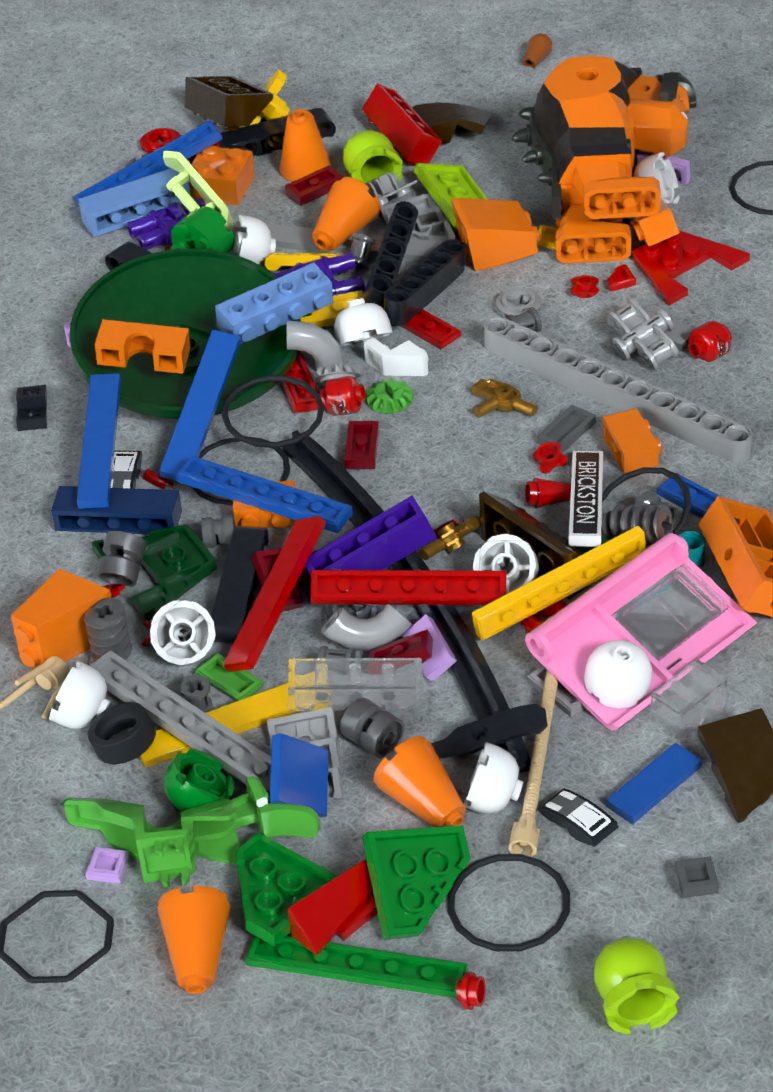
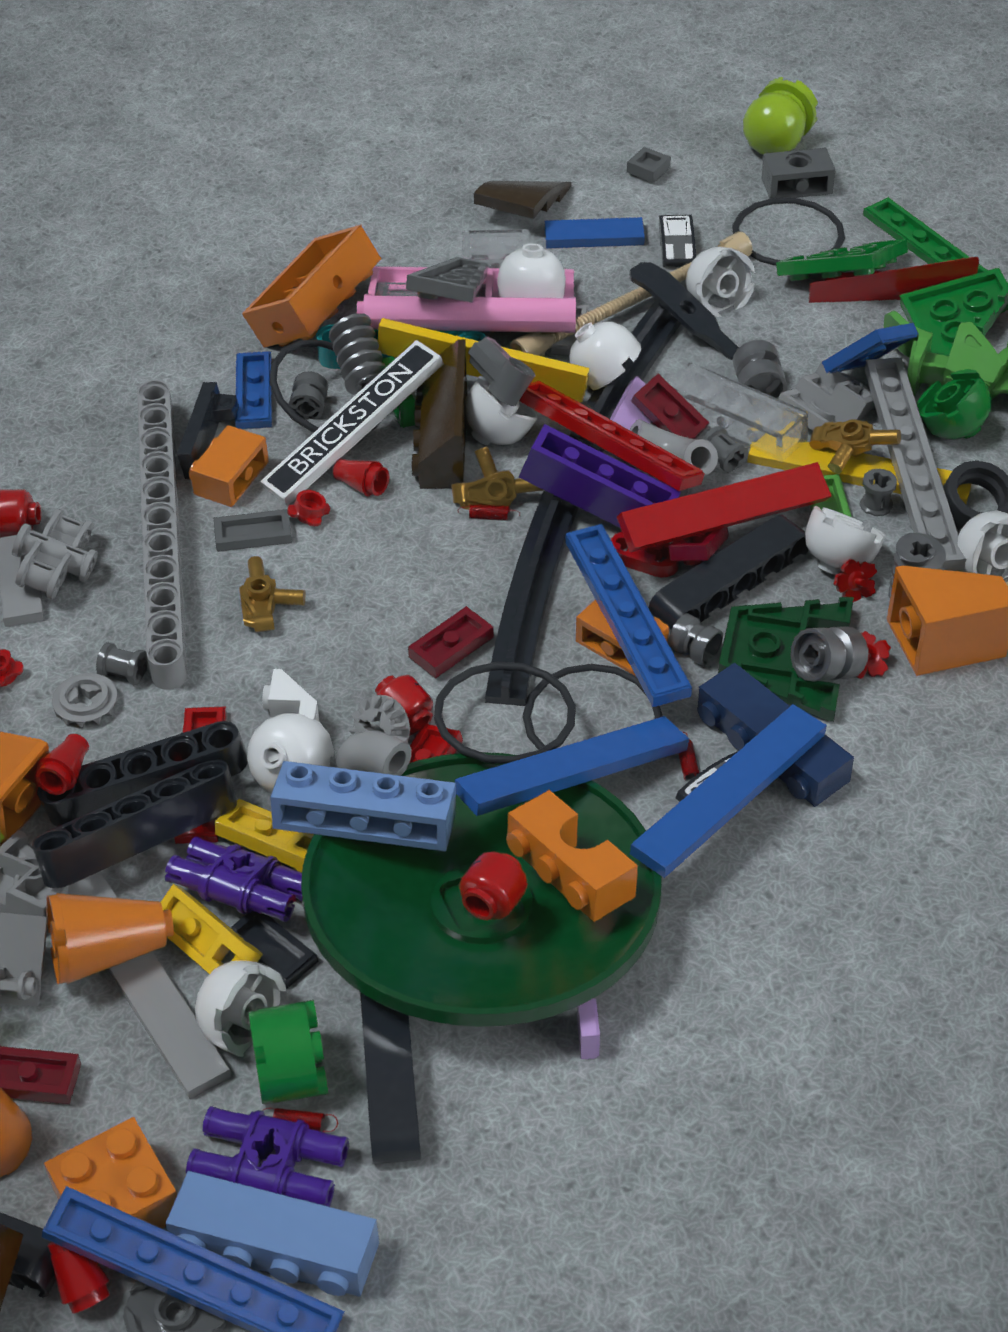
camera: 140 degrees left, 5 degrees up
(31, 407) = (735, 972): black slope -> none
(164, 308) = (493, 886): none -> red head
(187, 173) = (201, 1143): yellowish green piece -> none
(247, 708) = (849, 439): none -> pearl gold piece
(361, 248) = (129, 886): dark grey bush -> none
(381, 402) = (333, 690): bright green gear -> none
(421, 783) = (773, 312): orange cone -> none
(455, 241) = (61, 767): none -> red cone
(471, 990) = (882, 187): red plate -> none
(490, 648) = (603, 351): none -> white cylinder
(521, 556) = (505, 374): none -> dark grey piece
(559, 952) = (798, 173): none -> dark grey brick
(639, 588) = (451, 279): none -> dark grey wing
(693, 458) = (202, 426): none -> black hinge

